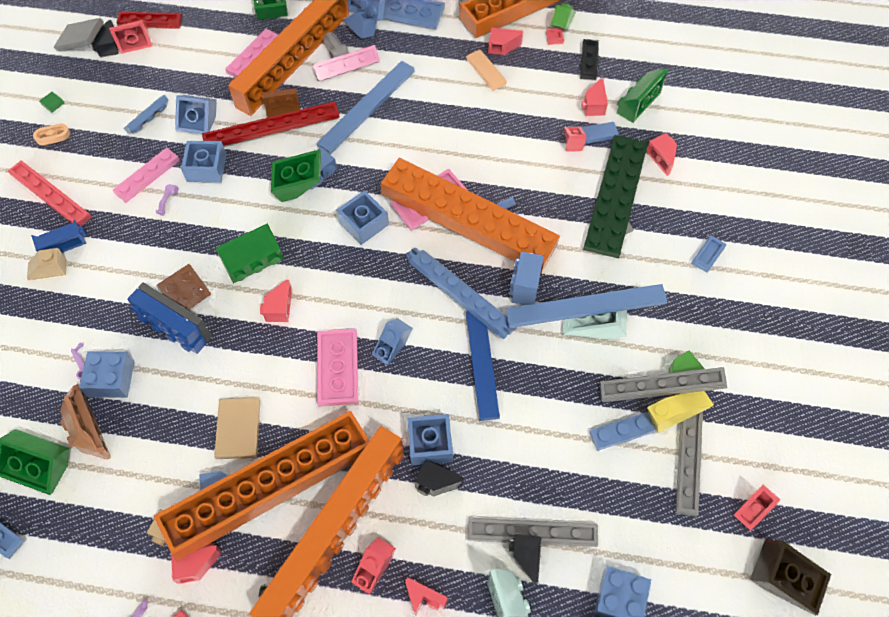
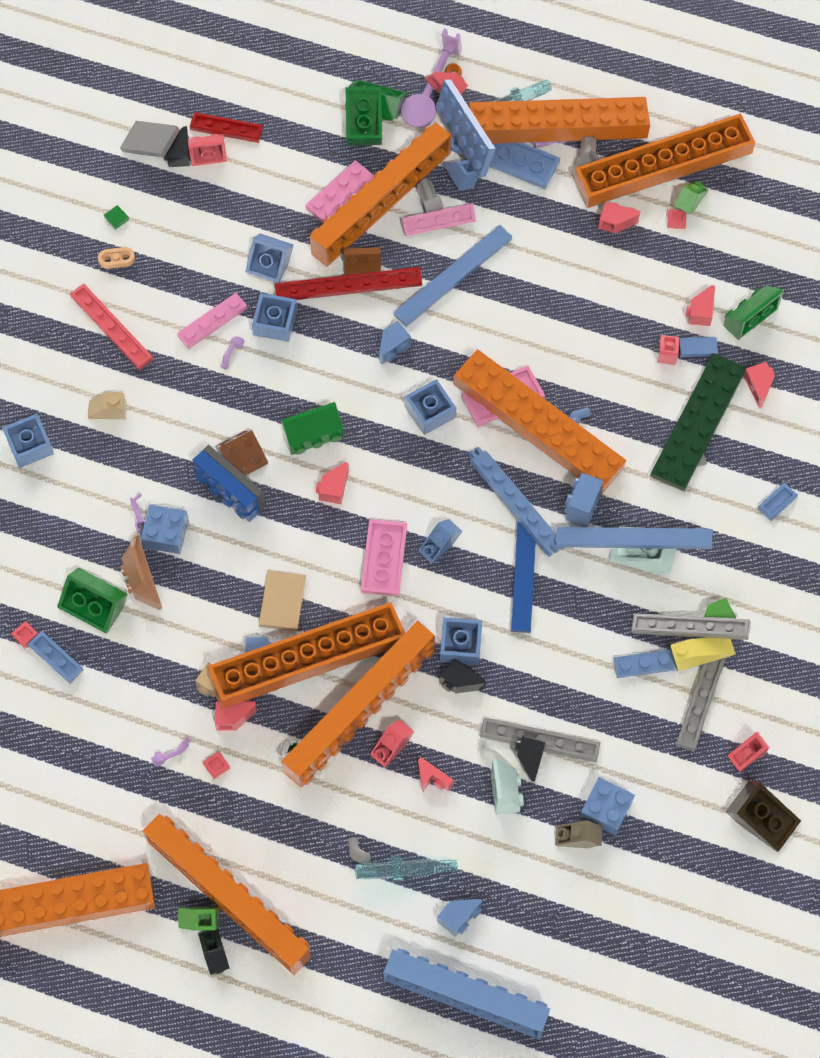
camera: 10 degrees right, 5 degrees up
(63, 238) = (124, 380): blue window -> none
(146, 115) = (217, 249): medium blue plate -> none
(295, 175) = (368, 350): green slope -> none
(486, 70) = (591, 250): light nougat tile -> none
(589, 59) = (708, 254): black tile -> none

